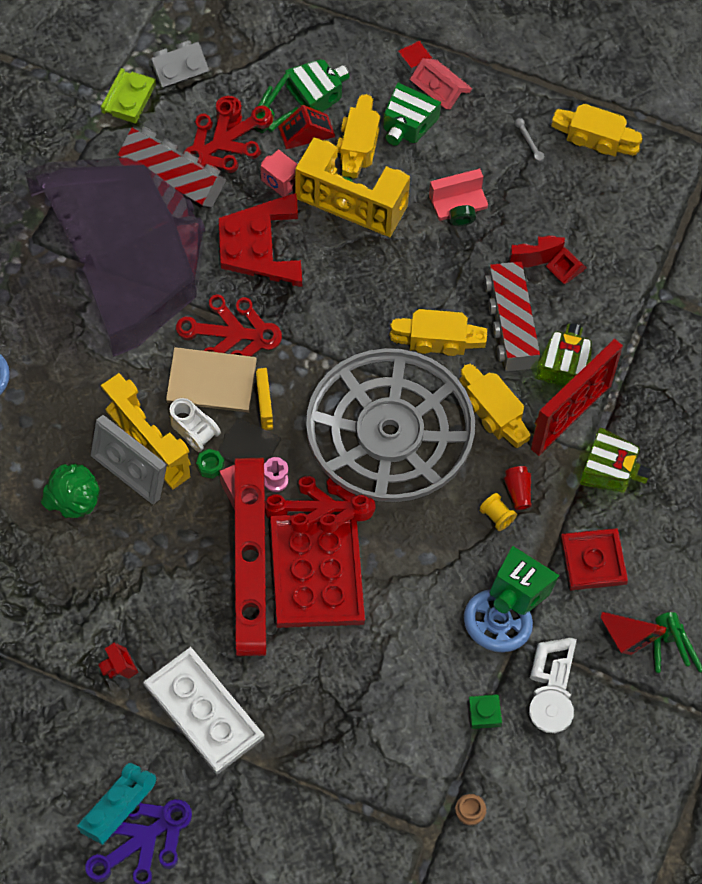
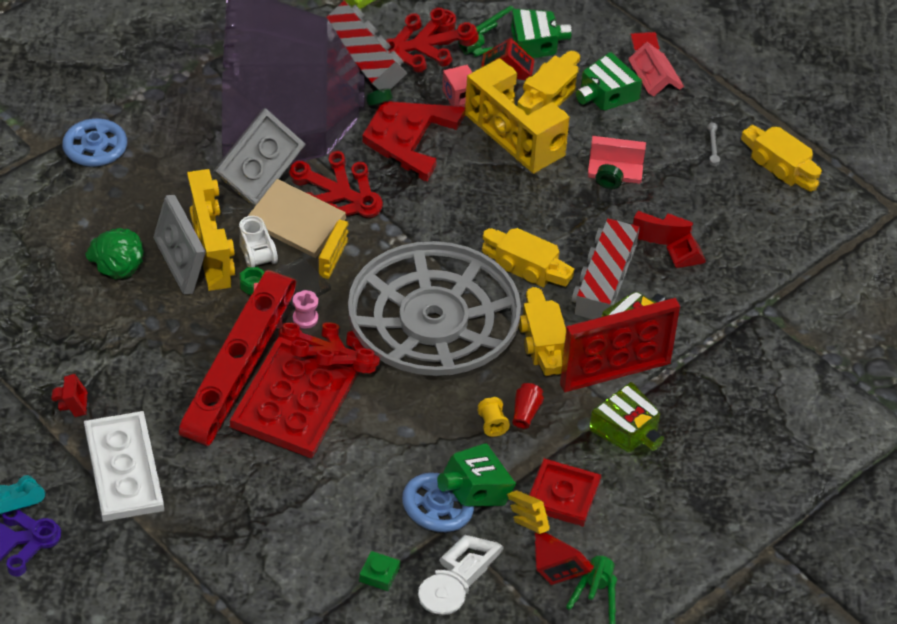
camera: 25 degrees right, 15 degrees down
(150, 334) = (259, 157): none -> light grey tile
(213, 214) = (379, 96): none -> dark green tile
(586, 599) = (528, 516): none -> yellow tile

